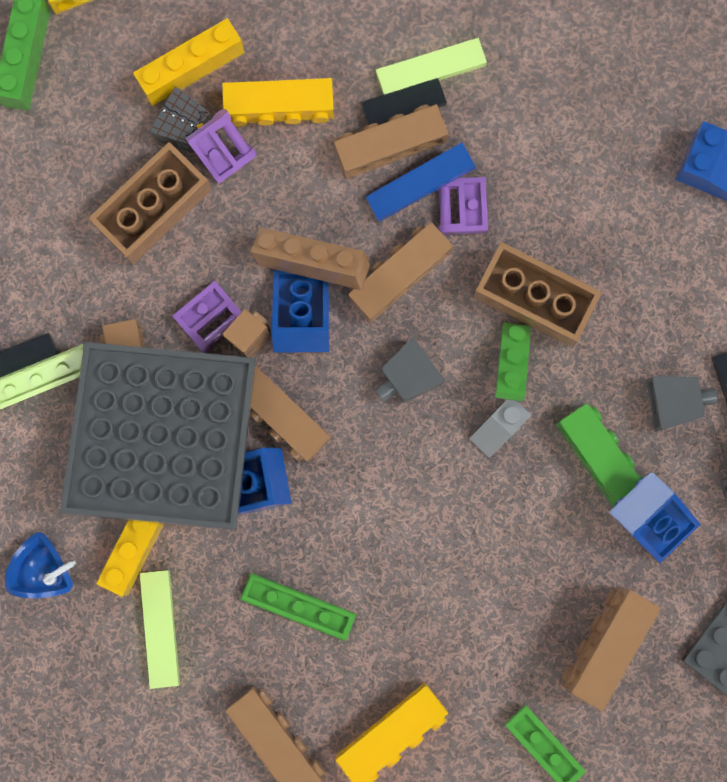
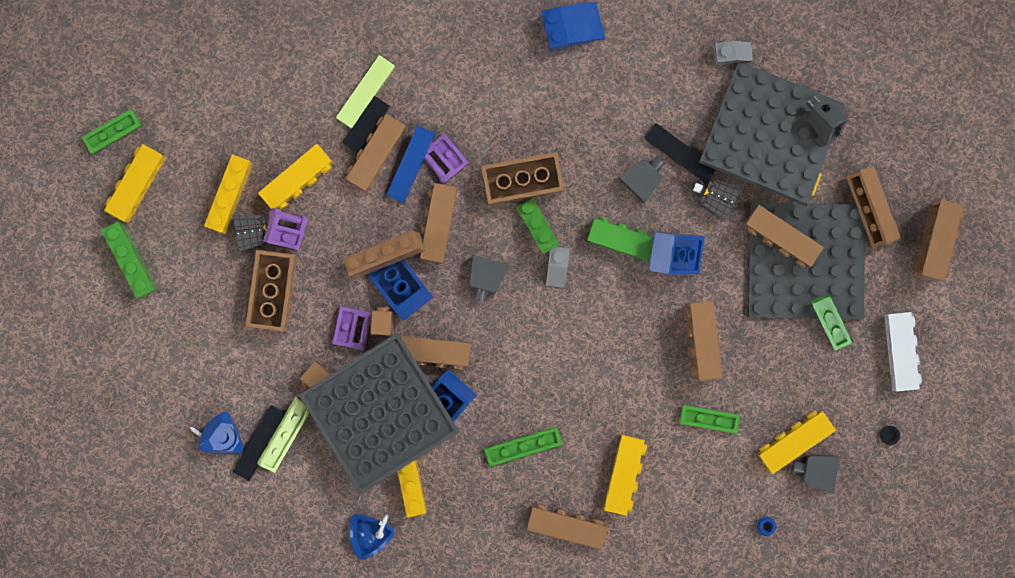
camera: 35 degrees left, 5 degrees up
(159, 629) = (458, 515): yellowish green tile -> none

